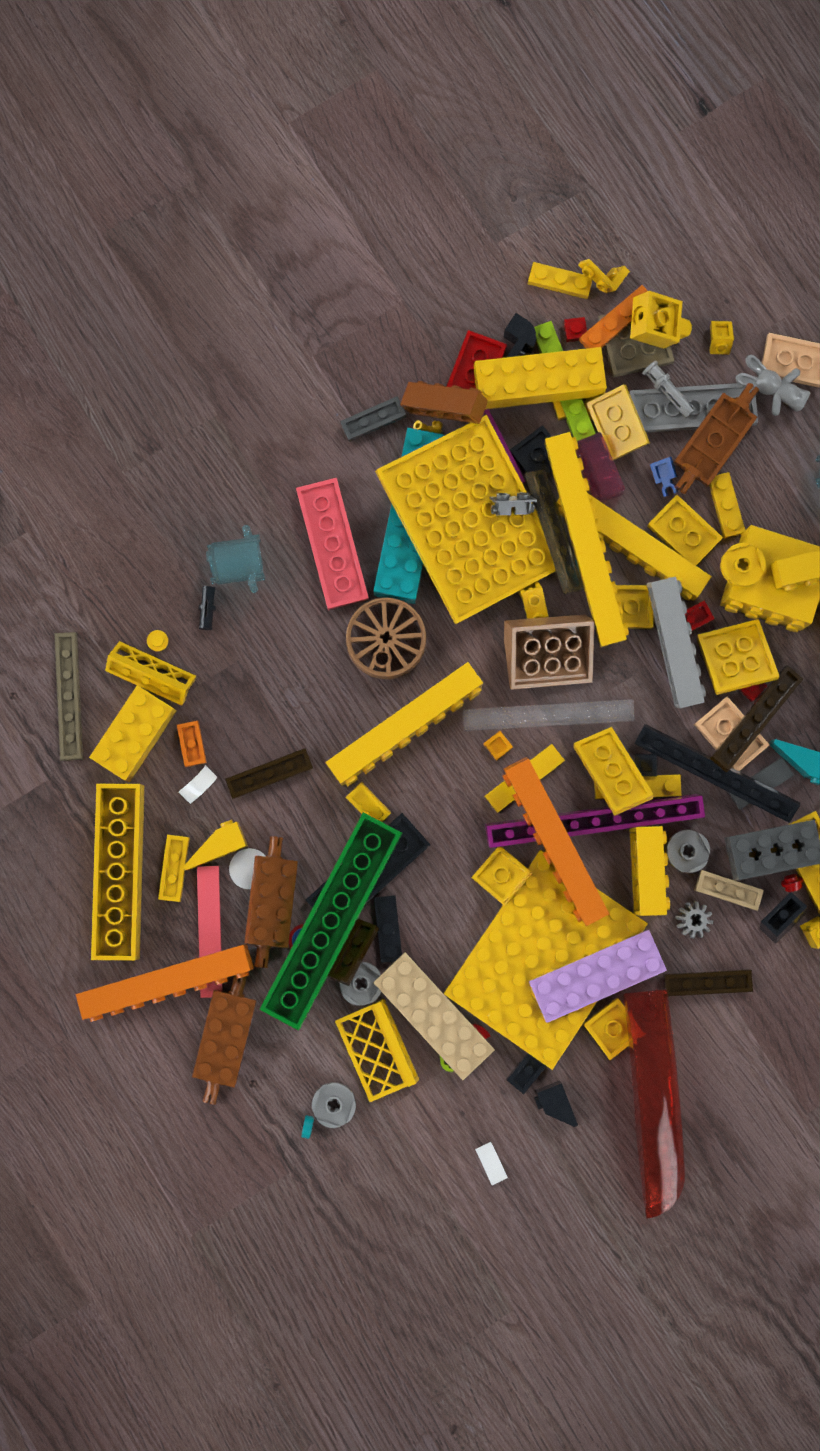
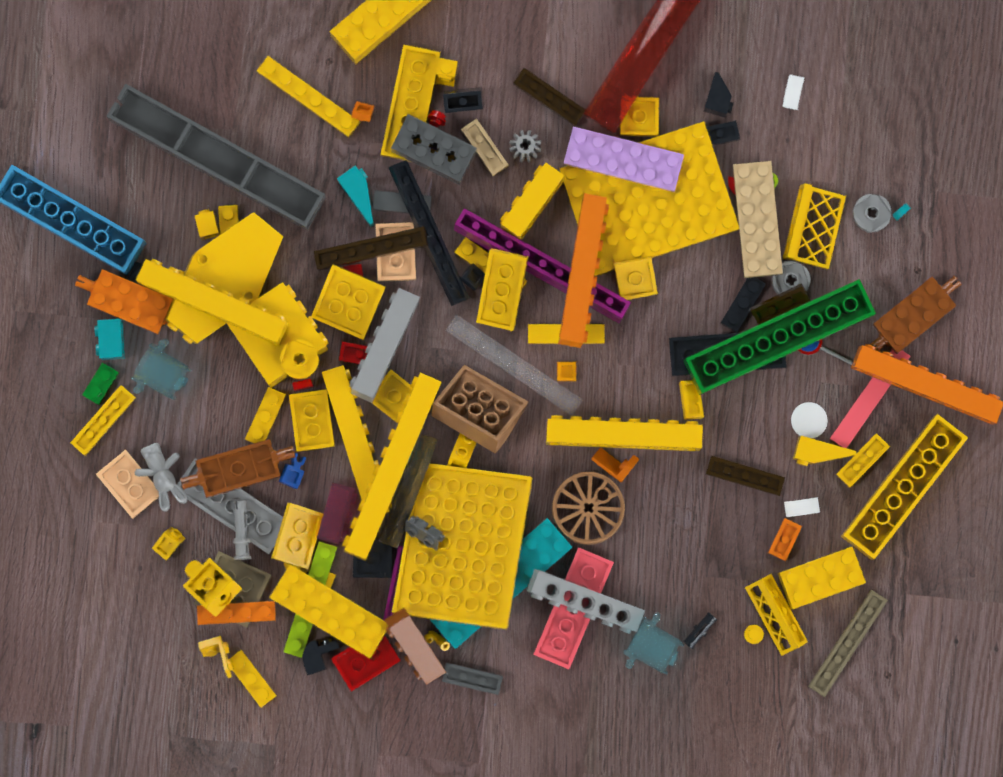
camera: 140 degrees left, 0 degrees up
(270, 902) = (812, 383): dark orange plate -> none
(274, 563) = (632, 614): none -> light grey brick
(393, 692) = (612, 465): none -> orange bracket
(574, 328) = (269, 632): red plate -> none
(682, 862) = (500, 189): light grey plate -> none
(716, 557) = (302, 385): none -> red tile

